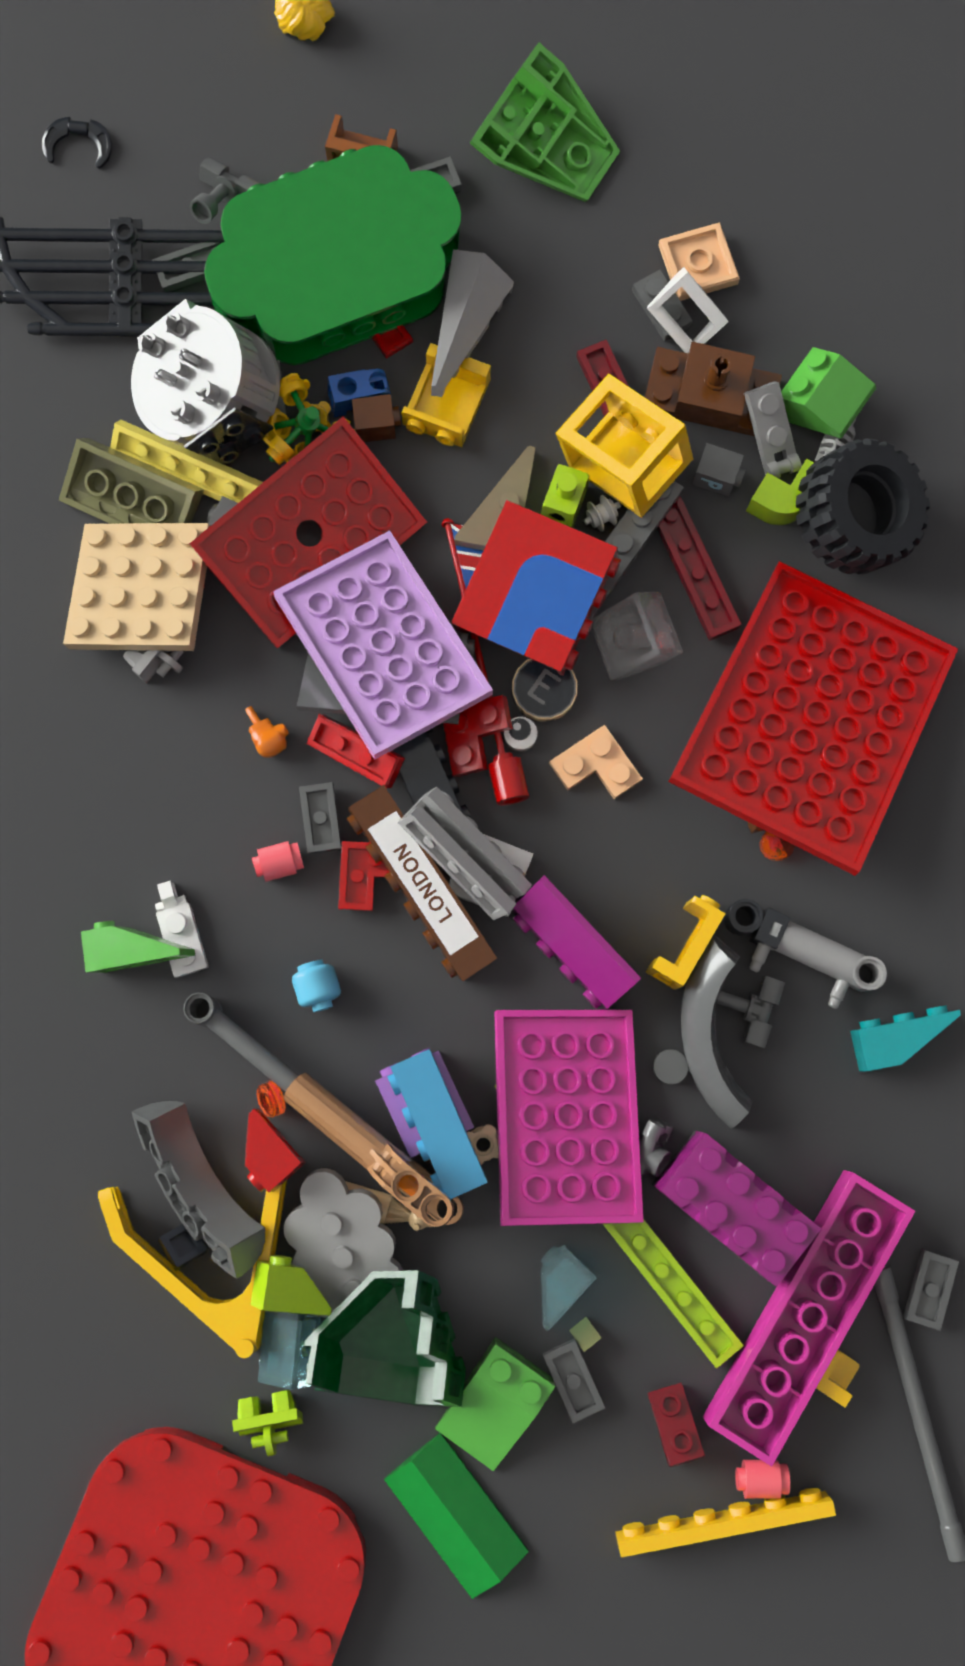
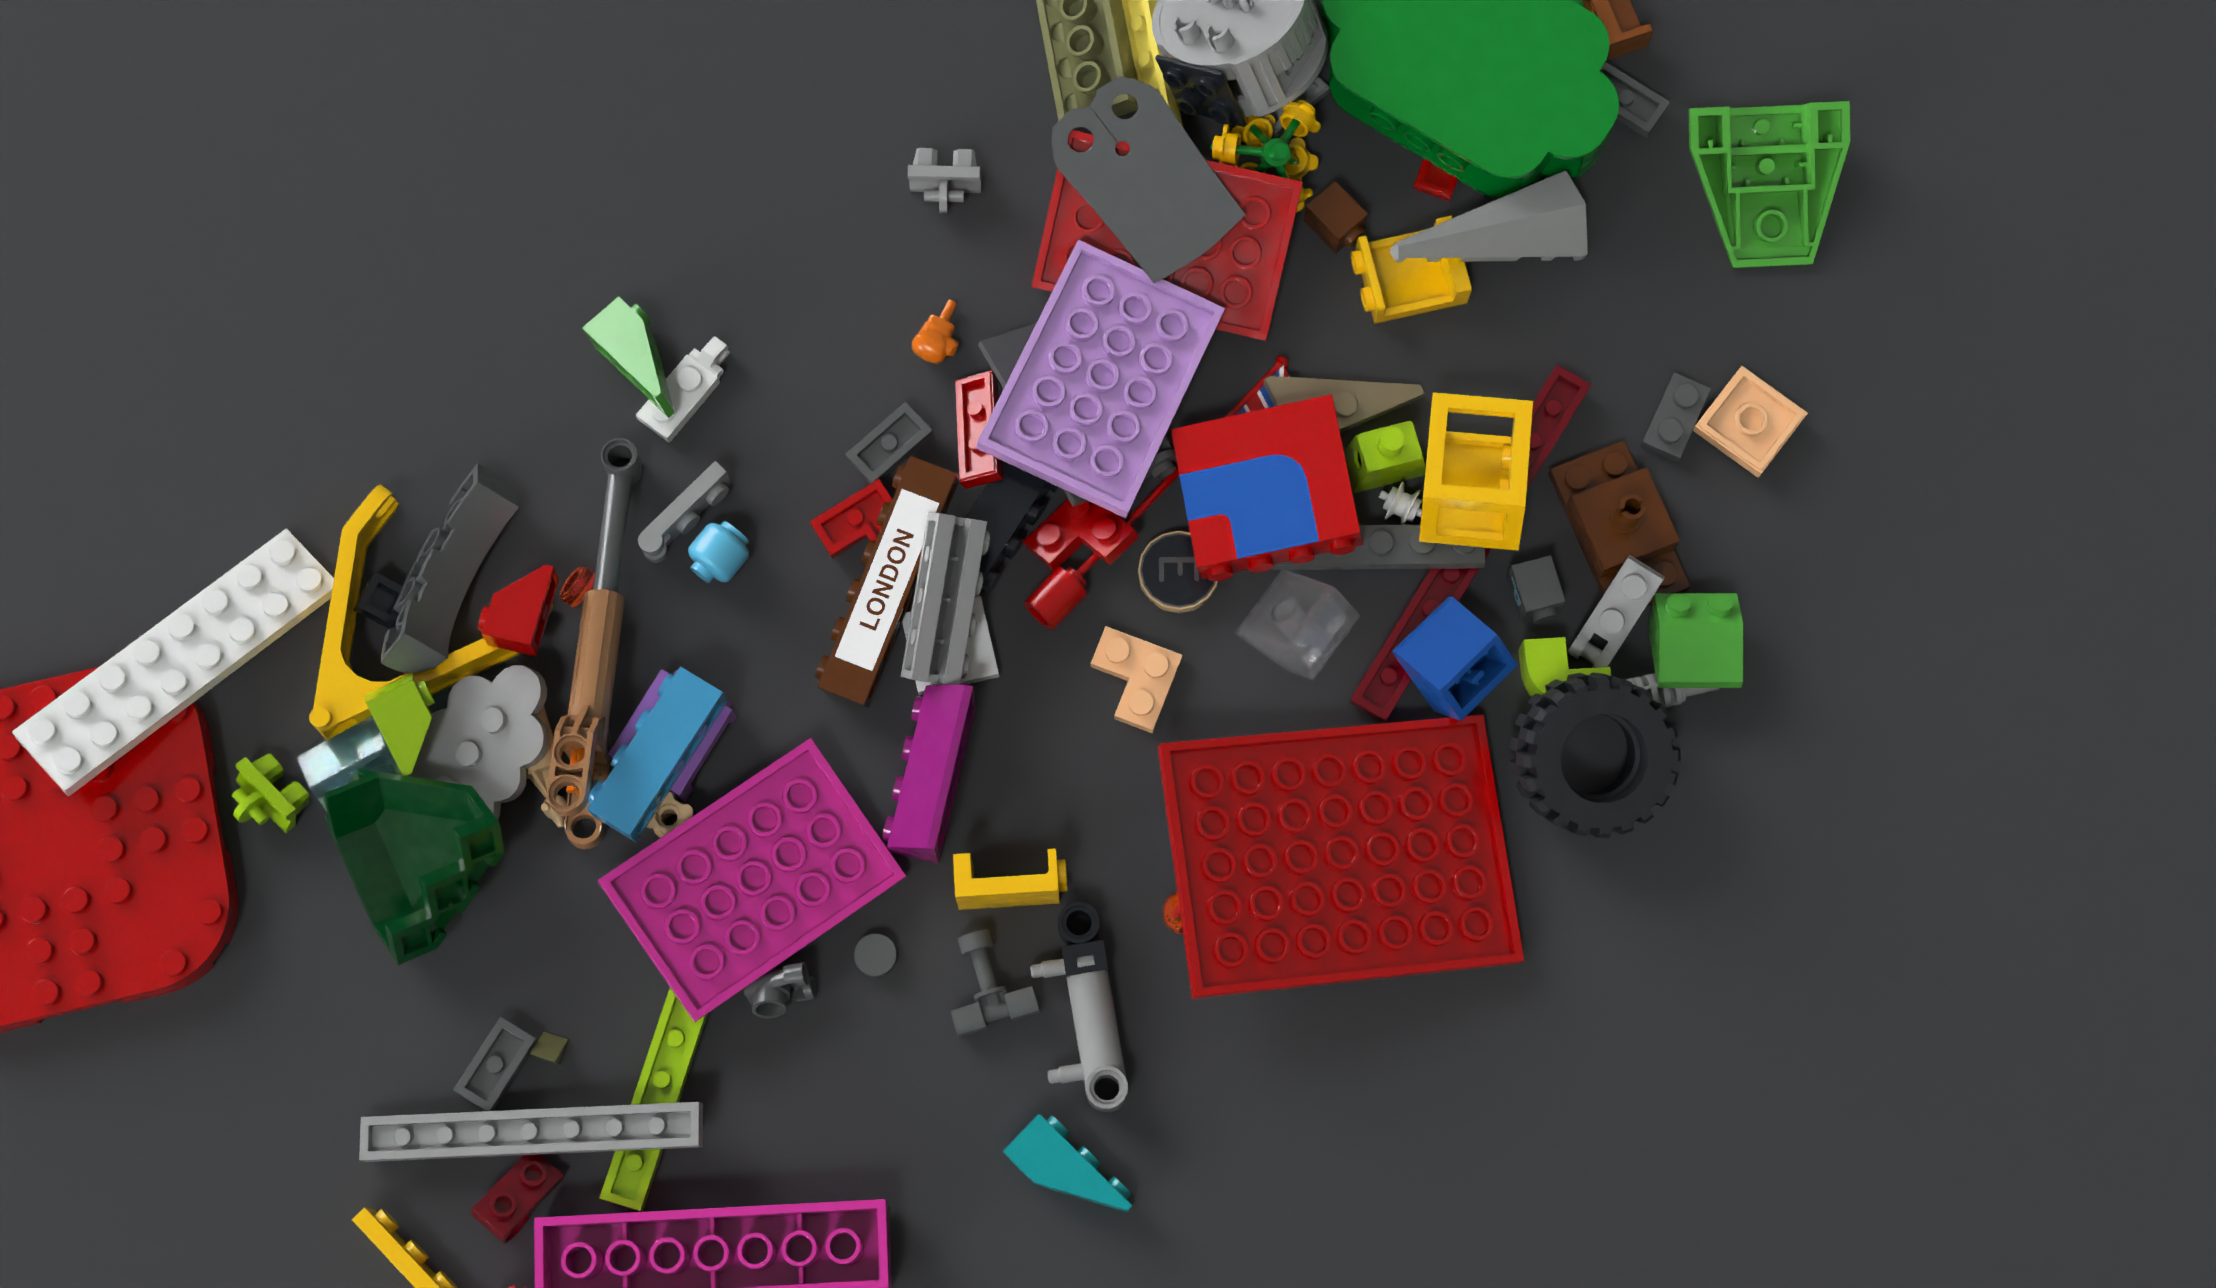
camera: 55 degrees right, 5 degrees down
(126, 1430) = (175, 662): none -> white plate
(137, 588) = (988, 113): tan plate -> none
(270, 990) = (684, 512): none -> light grey plate
(278, 861) = (818, 433): coral brick -> none
(281, 520) = (1159, 195): none -> dark grey piece
(354, 385) = (1355, 178): blue leg -> none
(457, 1516) = (292, 1040): green slope -> none
(496, 1404) = (424, 1003): bright green slope -> none
(522, 735) = (1114, 581): white tile -> none
(561, 1283) = (583, 987): clear light blue slope -> none
(640, 1388) = (531, 1132): none -> light grey plate
(701, 1037) = (925, 960): dark grey brick -> none
(703, 301) = (1703, 444): white tile -> none
(735, 551) = (1454, 659): none -> blue slope
(736, 1207) = (771, 1101): magenta piece -> none

